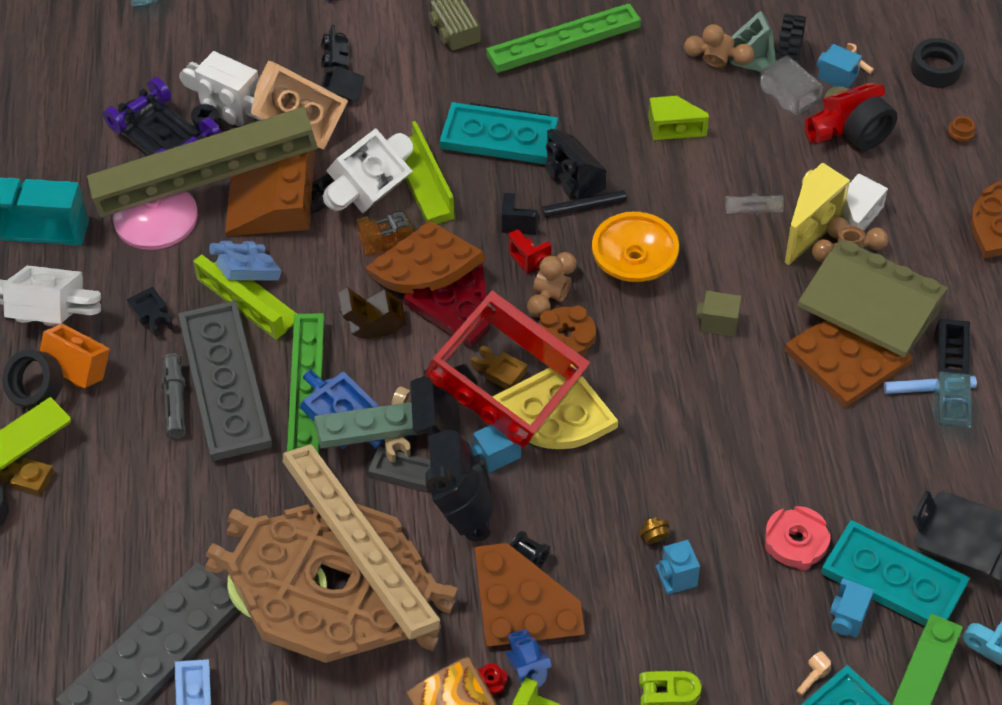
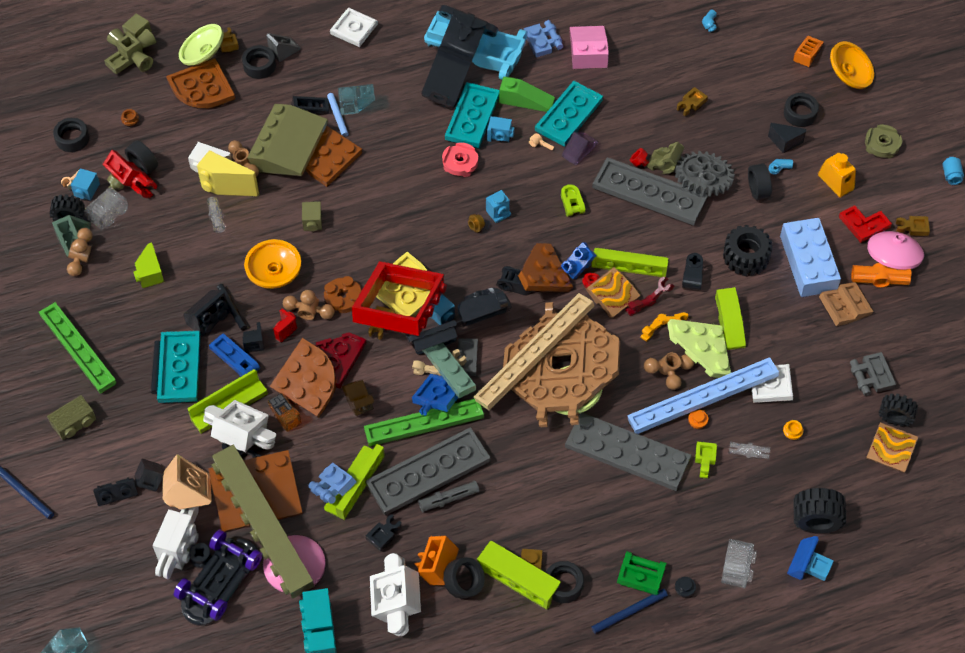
camera: 105 degrees left, 5 degrees up
(491, 192) = (233, 355): none -> blue plate

